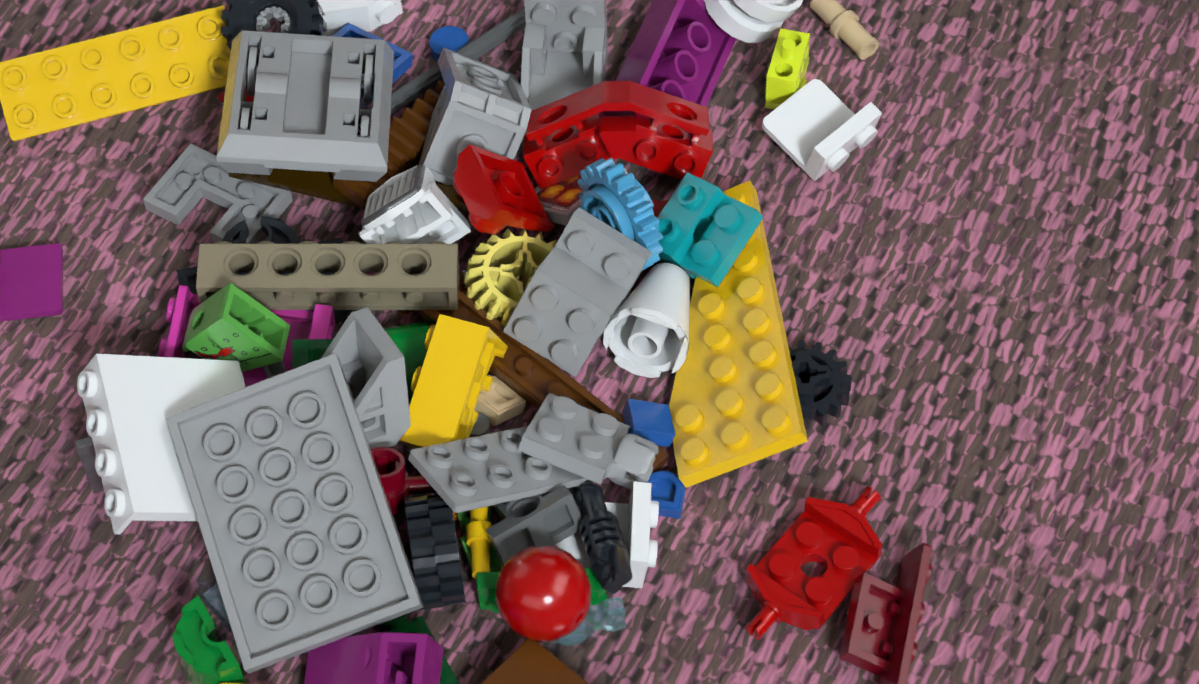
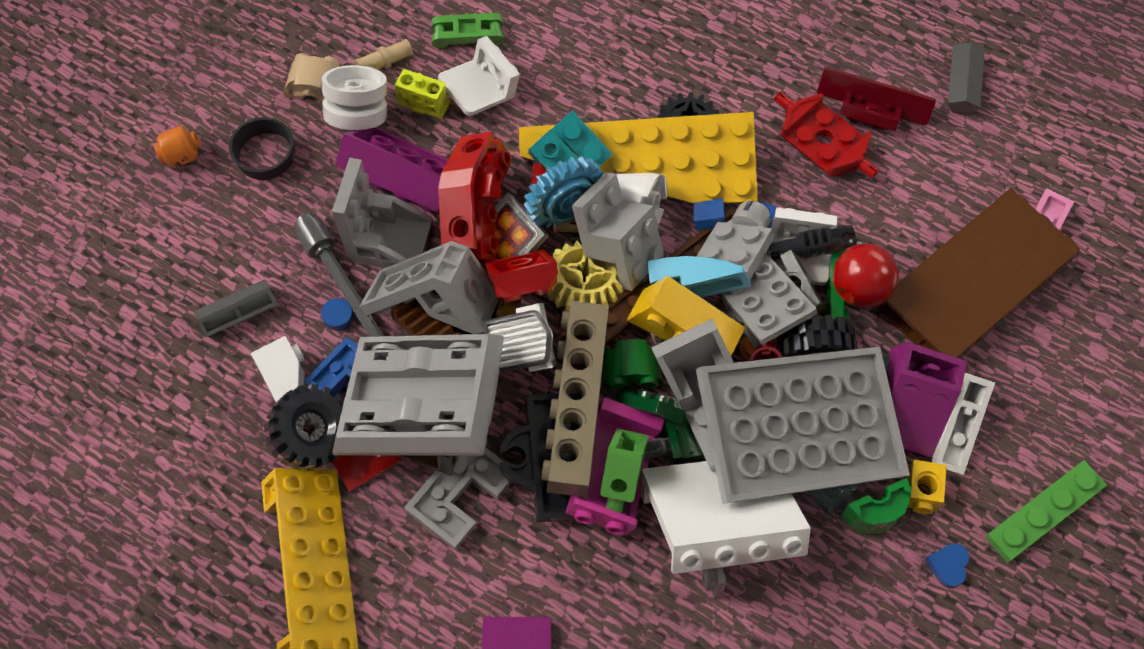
camera: 85 degrees left, 10 degrees up
(517, 384) = (700, 274): none -> medium azure slope
(914, 109) = (466, 29): none -> bright green plate

